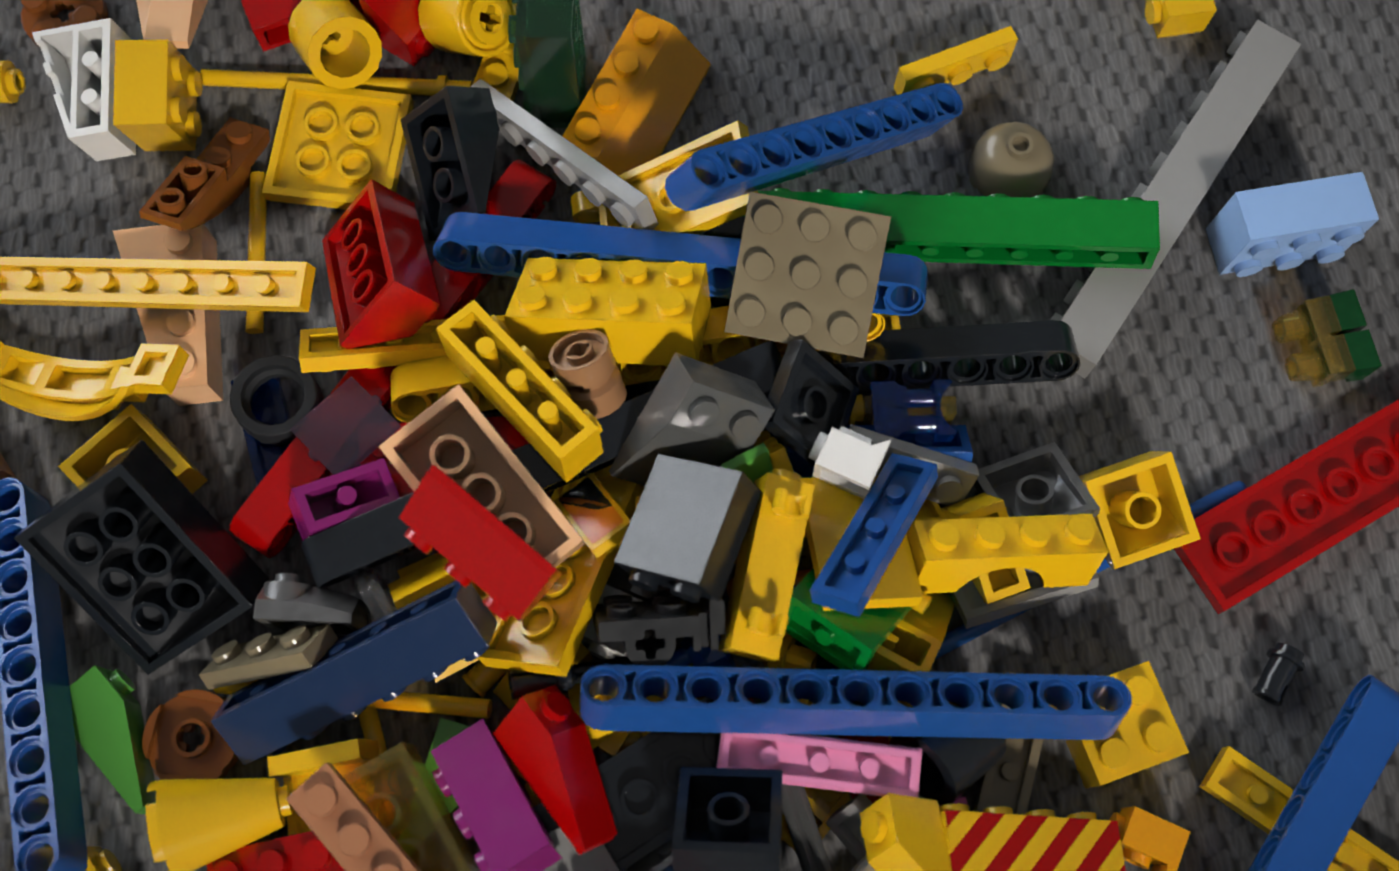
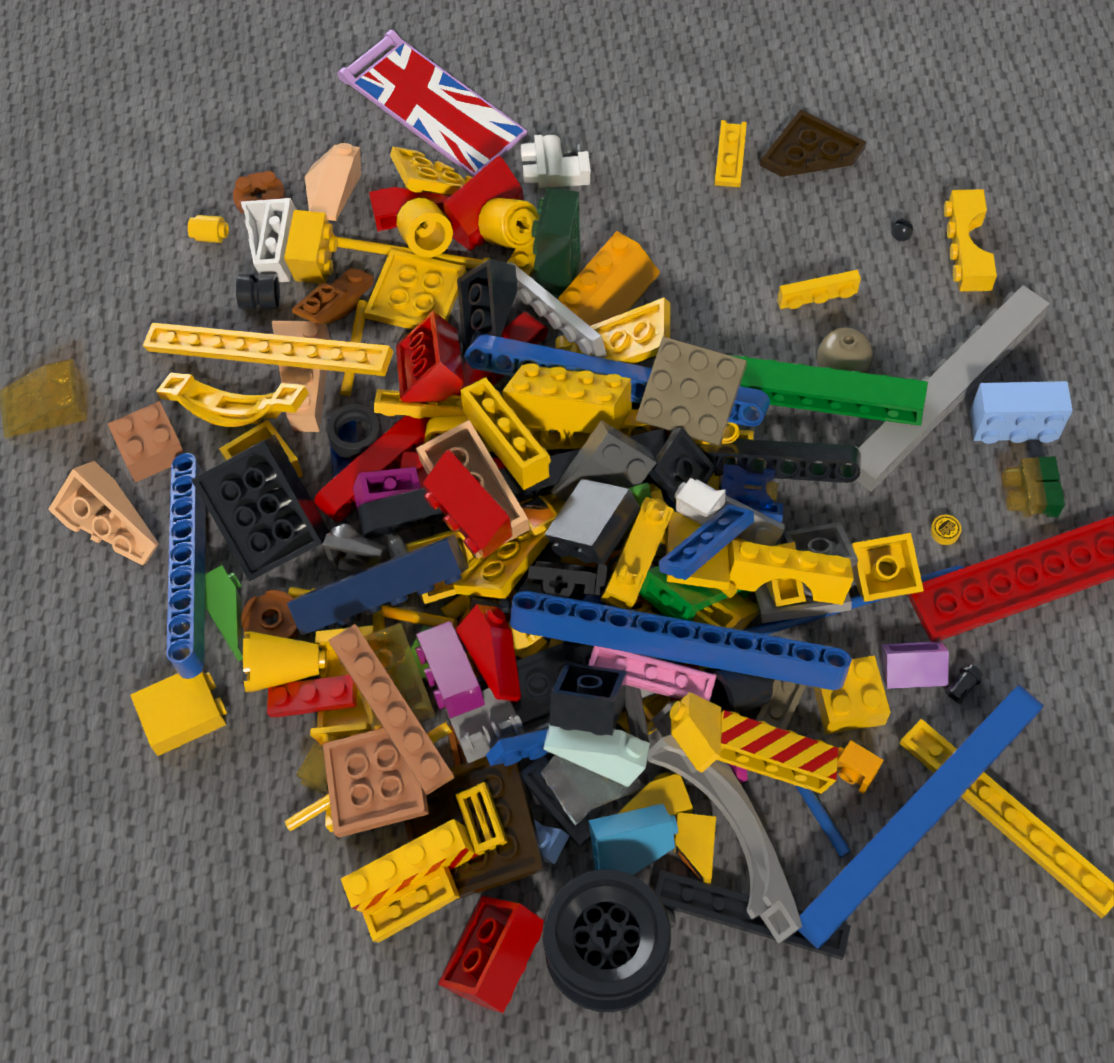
camera: 15 degrees right, 10 degrees down
(92, 178) = (258, 291): none -> black wheel
(268, 656) = (325, 572): dark tan plate -> none
(345, 427) = (393, 448): piece -> none
(588, 371) = (548, 429): medium nougat wheel -> none
(810, 146) = (712, 319): blue beam -> none
(1202, 655) = (915, 664): none -> medium lavender brick
(1206, 425) = (945, 529): none -> tile

